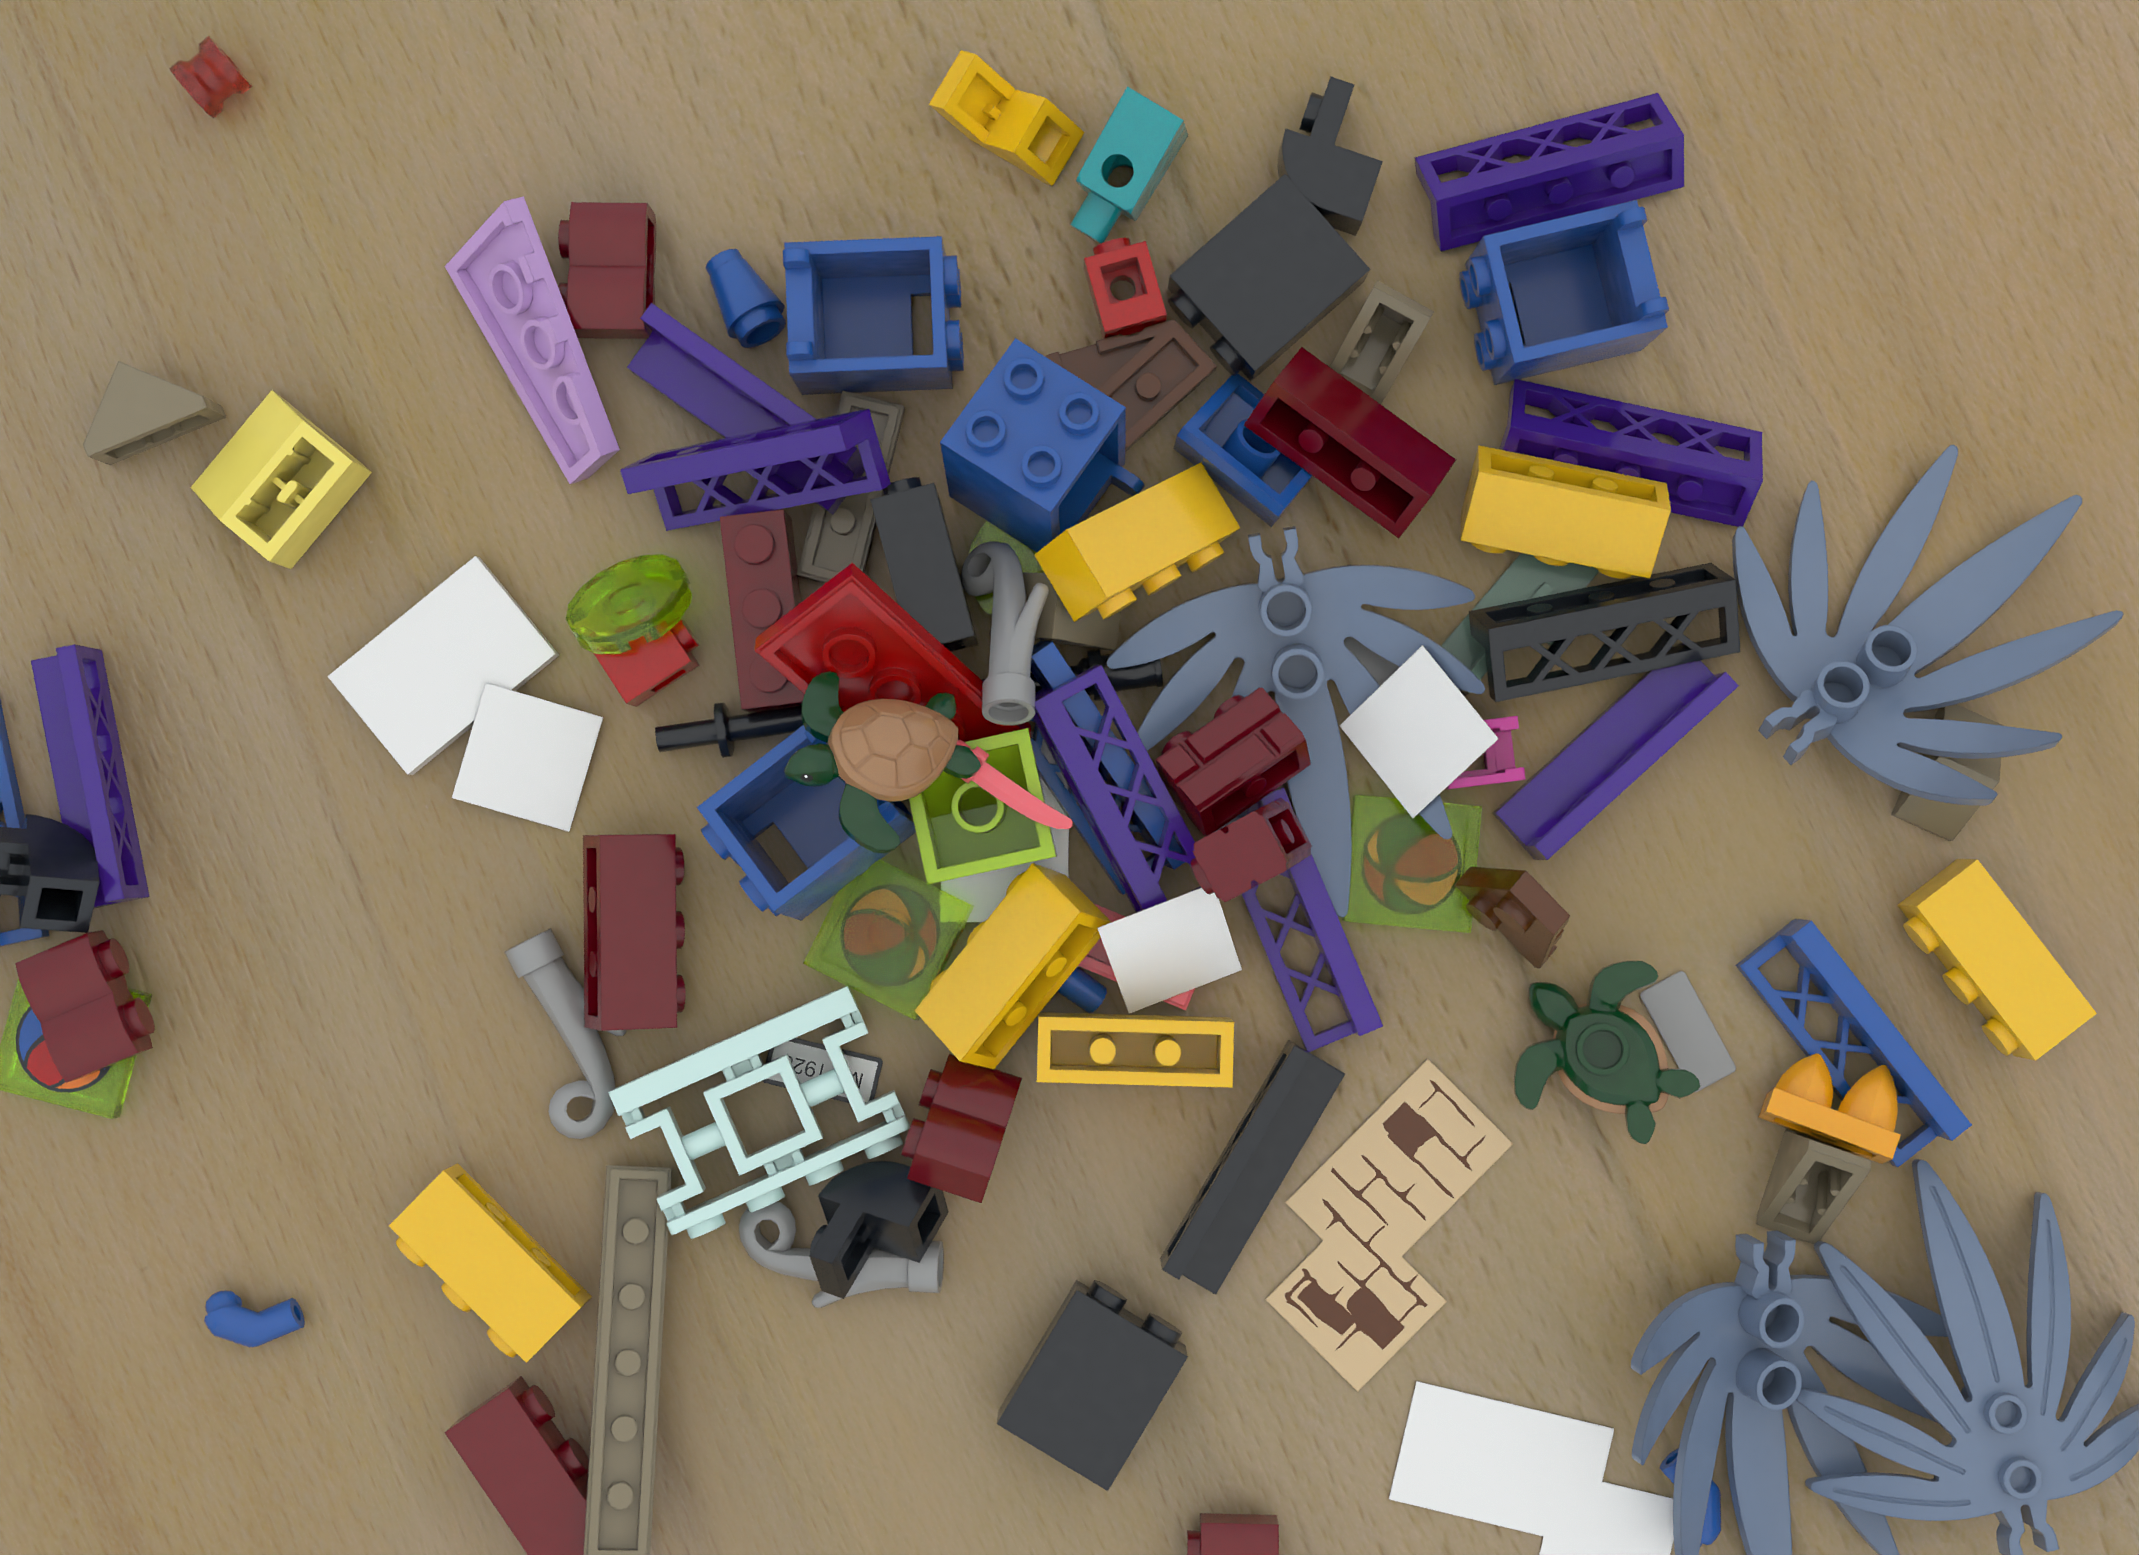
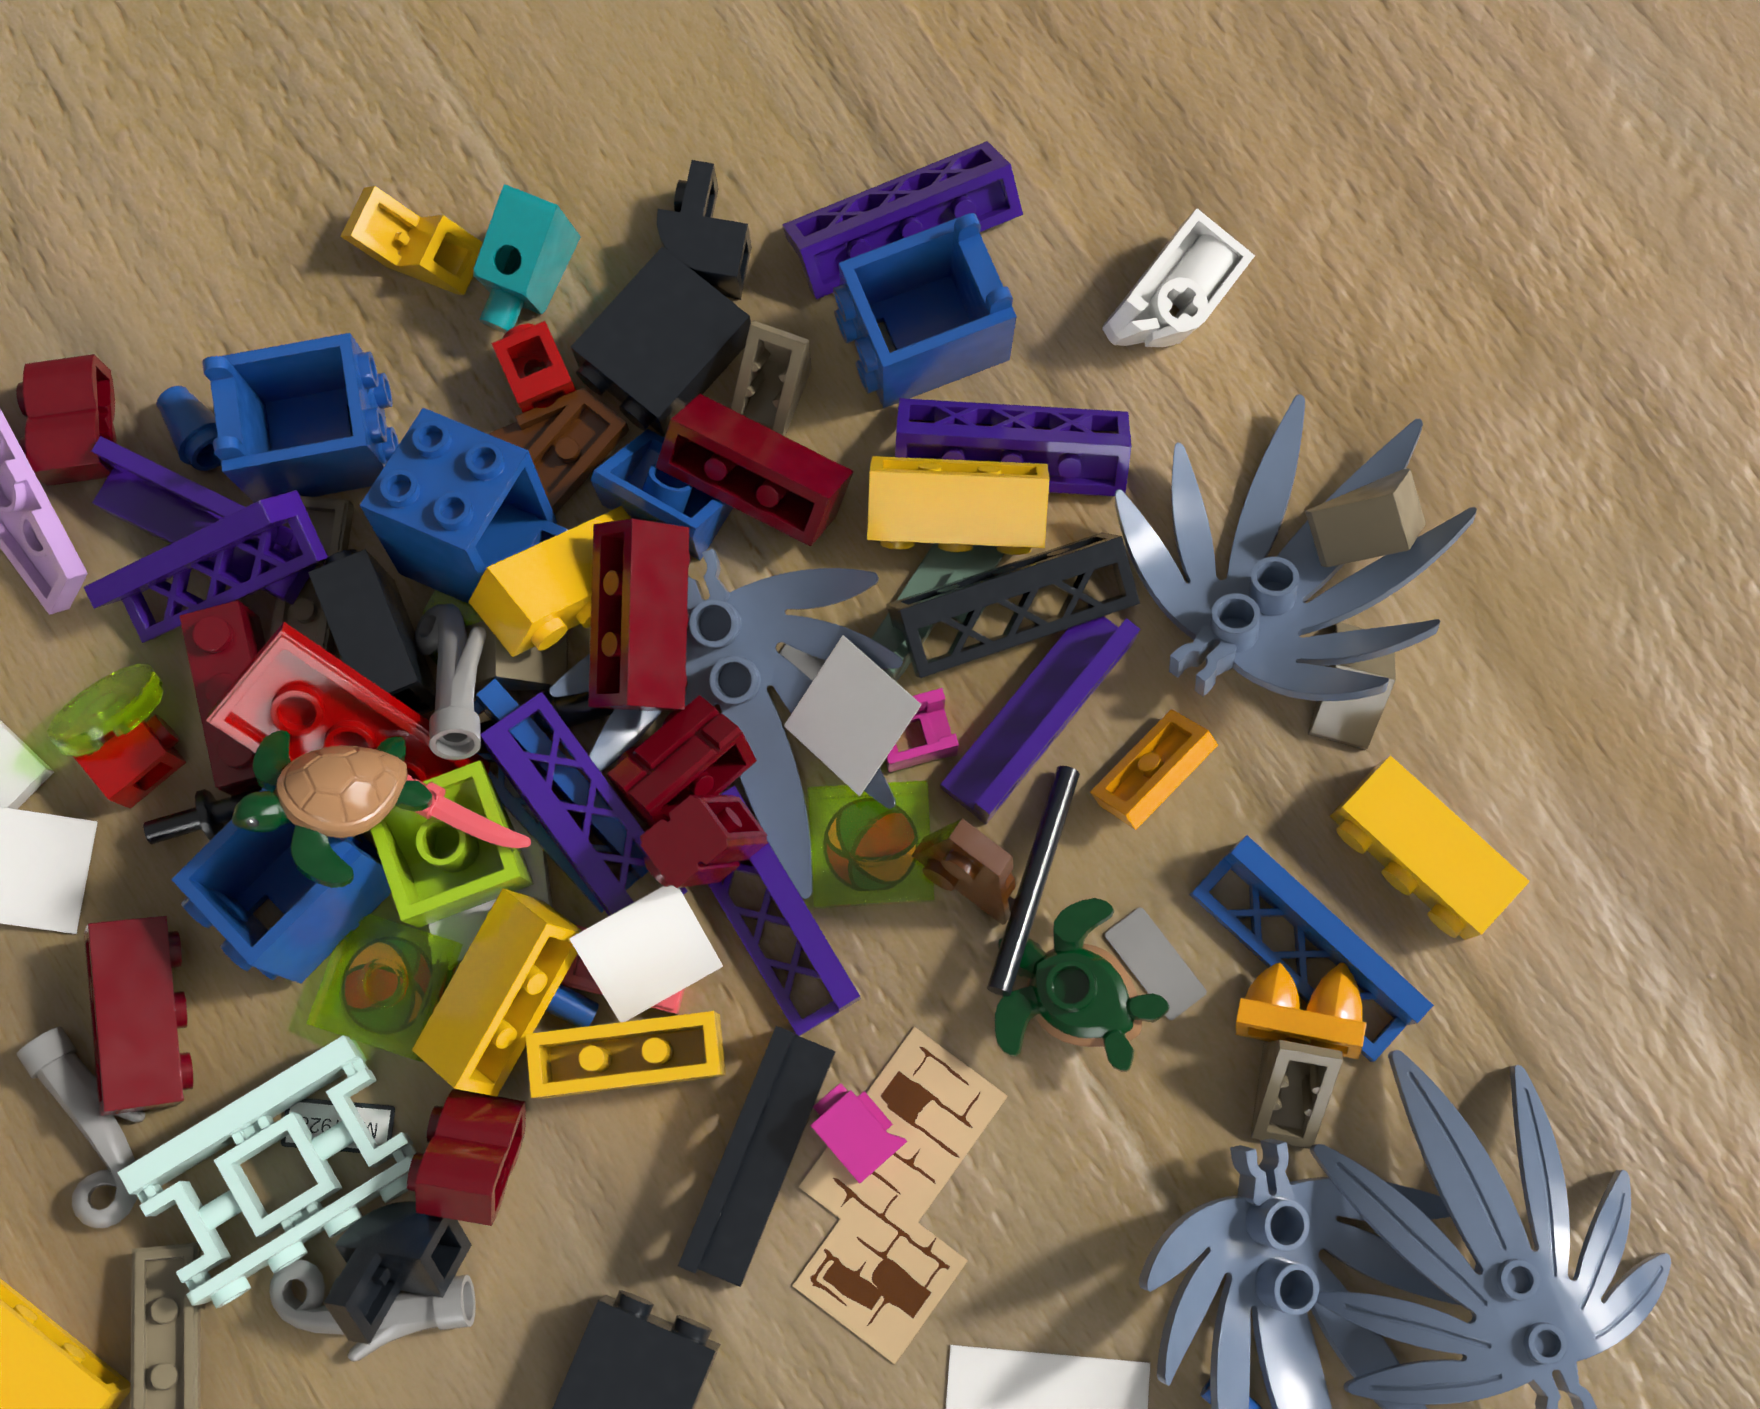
camera: 10 degrees left, 10 degrees down
(1212, 597) = (639, 616): none -> dark red brick
(1357, 1160) = (855, 1131): none -> dark pink window
(1579, 930) = (1033, 881): none -> black bar
(1724, 831) = (1154, 768): none -> light orange plate
(1861, 283) = (1188, 272): none -> white piece
(2003, 602) = (1368, 521): none -> dark tan slope

